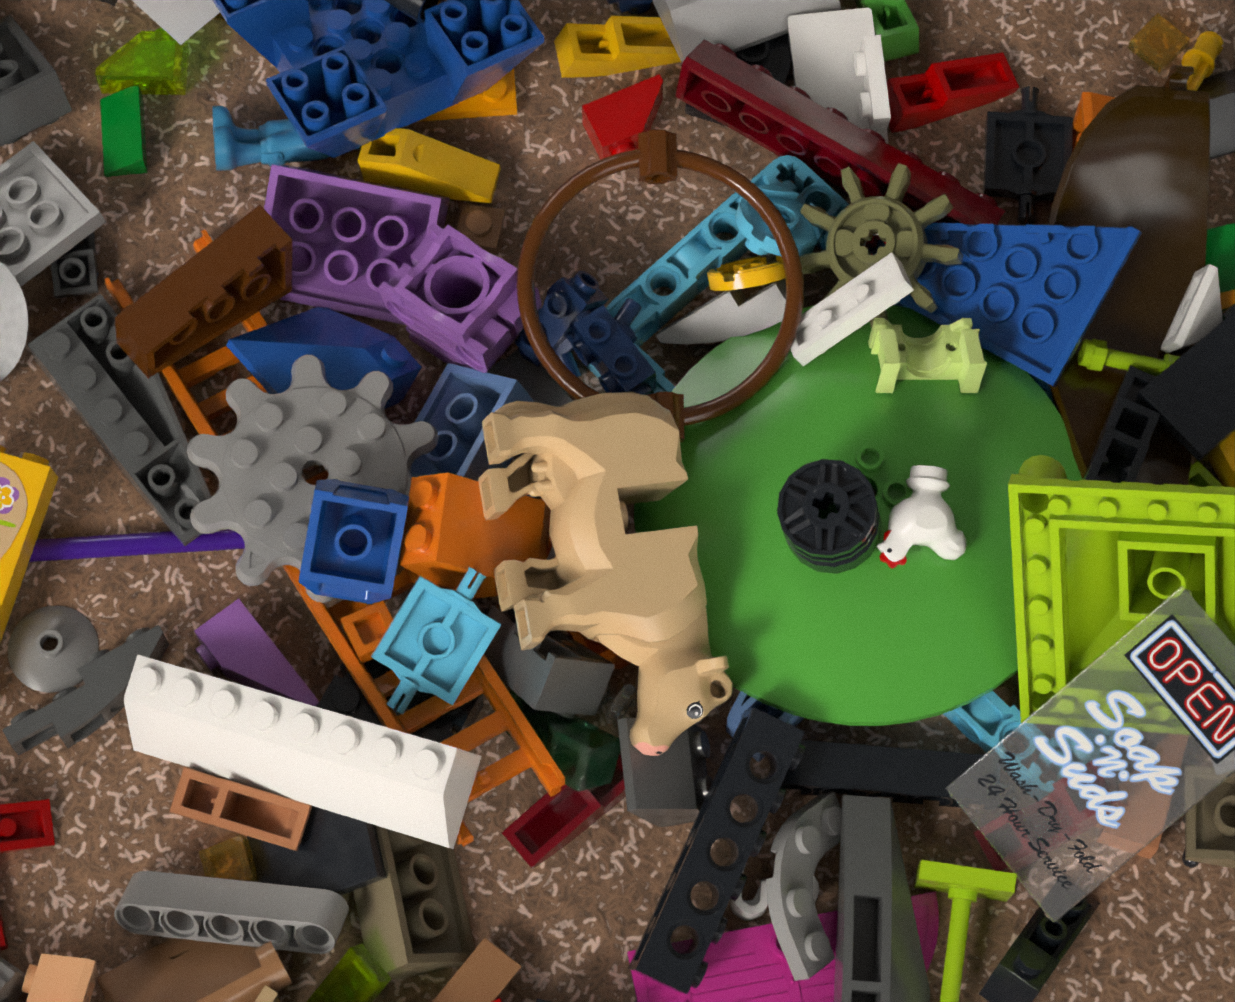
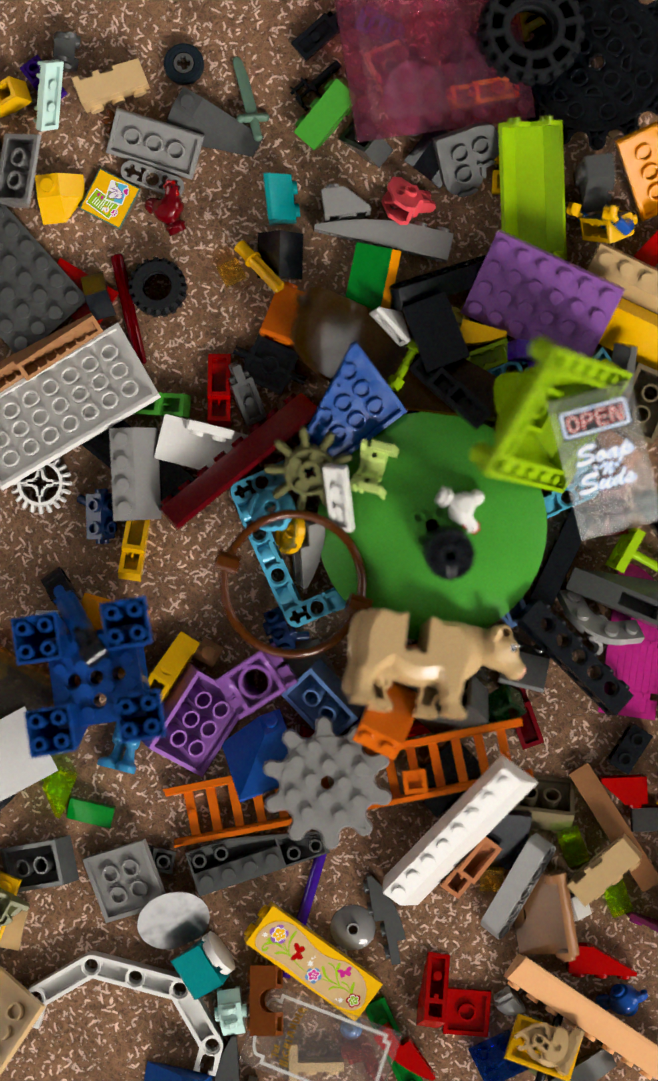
camera: 70 degrees left, 20 degrees up
(208, 293) = (210, 804): reddish brown wedge -> none
(248, 655) = (394, 837): medium lavender slope -> none
(353, 541) = (372, 776): blue slope -> none
(436, 640) = (435, 754): medium azure plate -> none
(610, 349) = (307, 617): dark blue brick -> none
(620, 116) = (178, 560): red slope -> none
(961, 127) = (246, 395): none -> dark grey hinge

